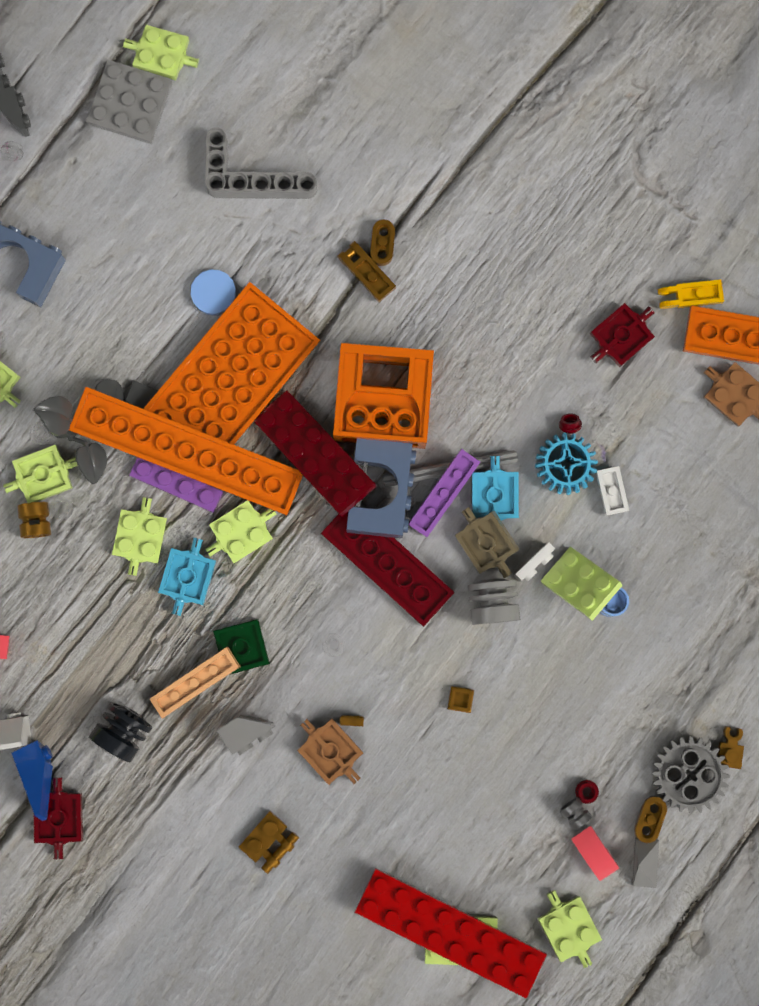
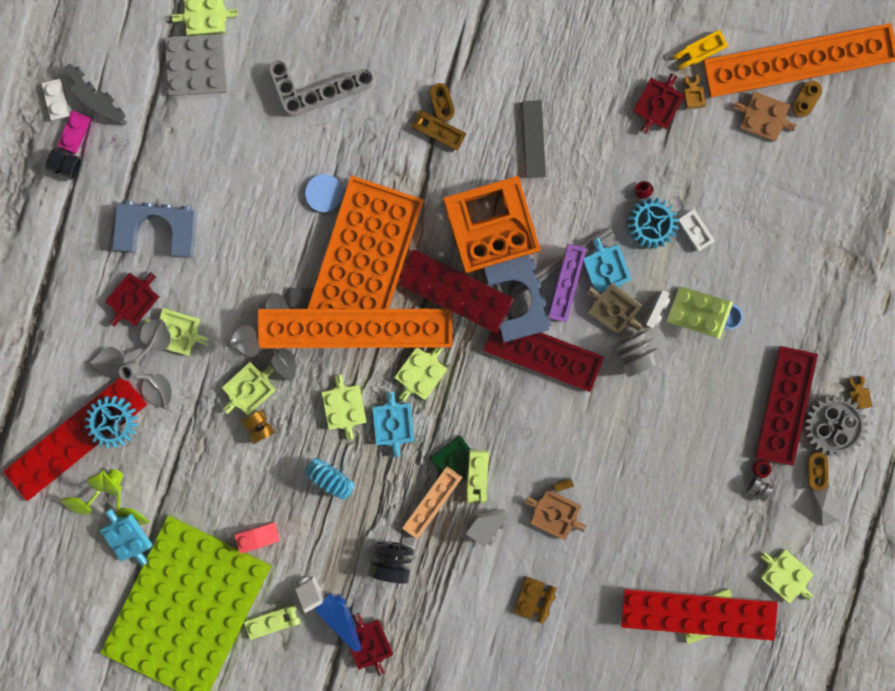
camera: 15 degrees left, 5 degrees up
(89, 609) = (329, 478): none -> medium azure gear
(177, 484) = (356, 356): medium lavender plate -> none
(258, 672) = (477, 475): none -> yellowish green plate
(460, 699) = (639, 436): pearl gold tile -> none
(468, 321) = (534, 139): none -> dark grey tile
(595, 853) = (785, 512): coral slope -> none
(641, 729) = (786, 405): none -> dark red plate
(665, 341) = (694, 95): none -> pearl gold plate

